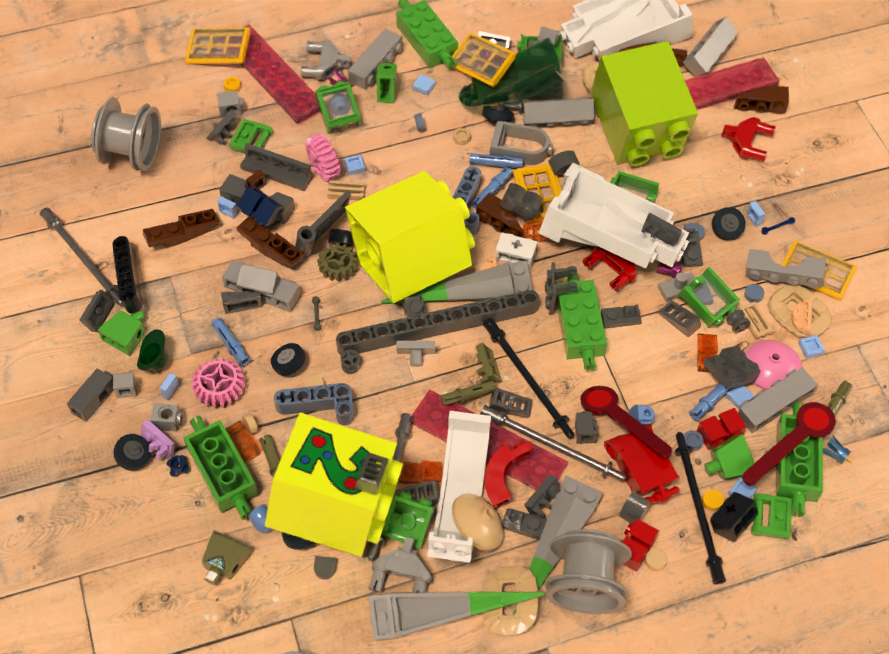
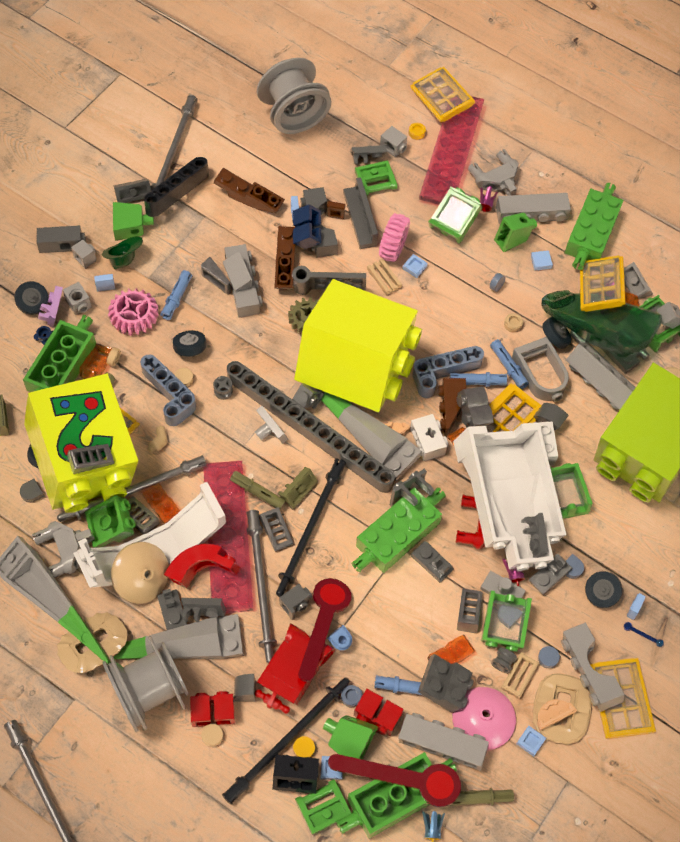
camera: 50 degrees right, 5 degrees up
(315, 300) = (262, 326): dark grey hinge -> none
(739, 395) = (427, 708): light blue tile -> none

